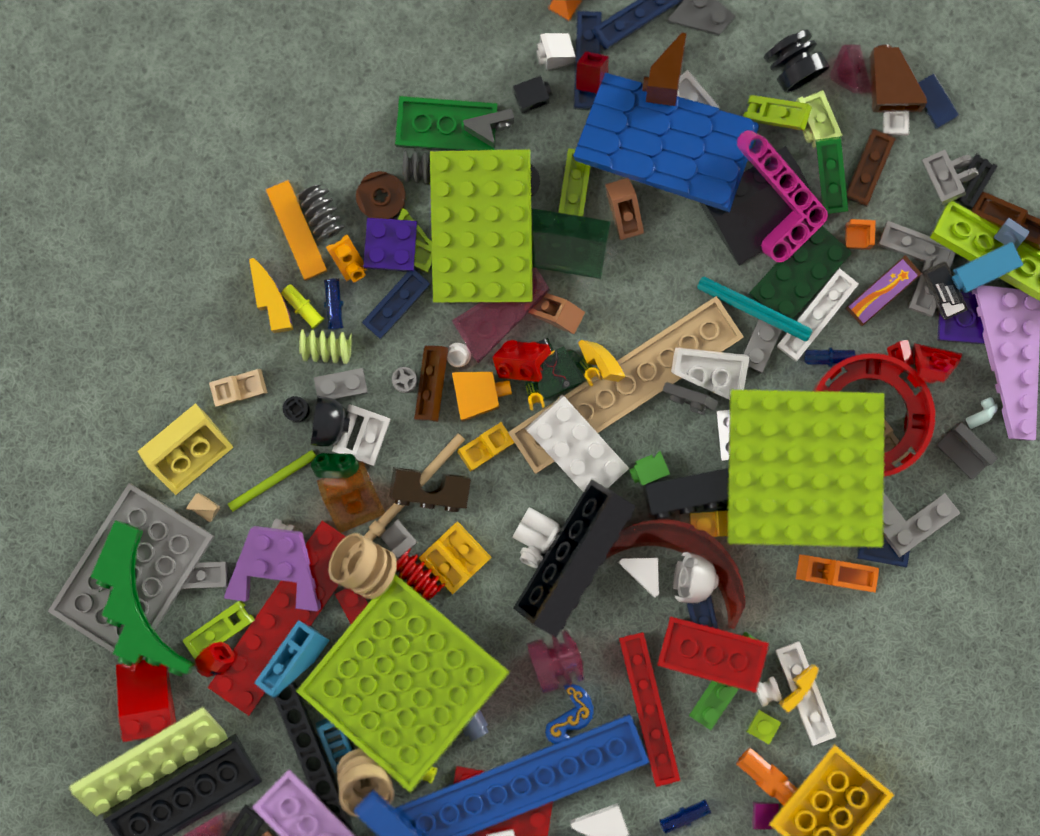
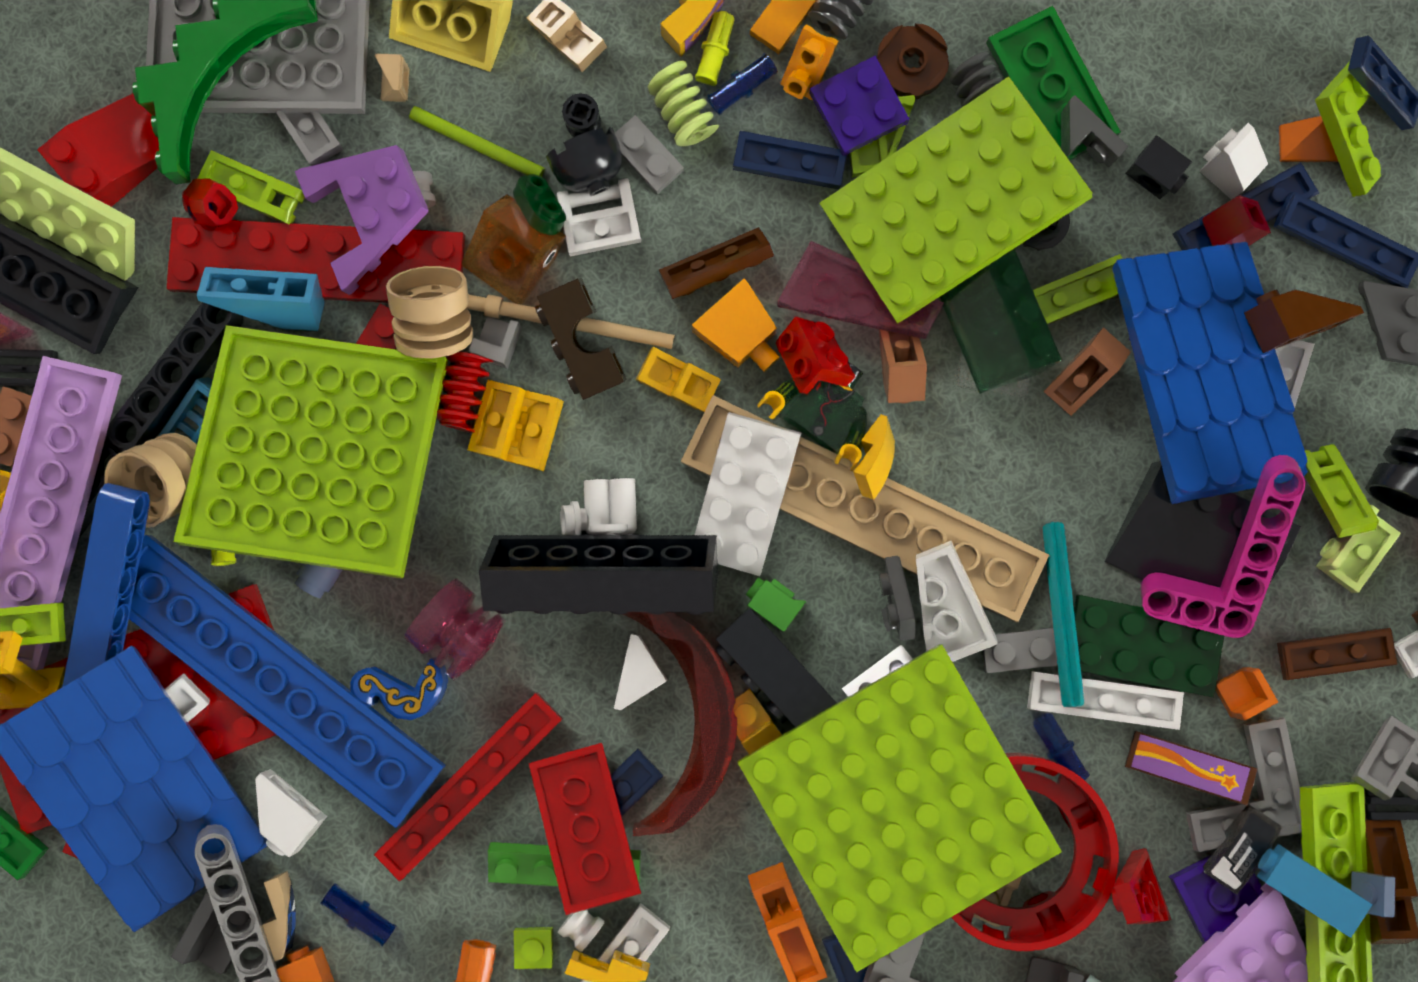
camera: 60 degrees right, 0 degrees up
(403, 376) = (699, 221): light grey wheel -> none
(458, 354) = (772, 275): white plate -> none
(694, 578) = (668, 745): white cylinder -> none
(832, 174) = (1301, 609): green plate -> none
(901, 351) = (1128, 837): red plate -> none

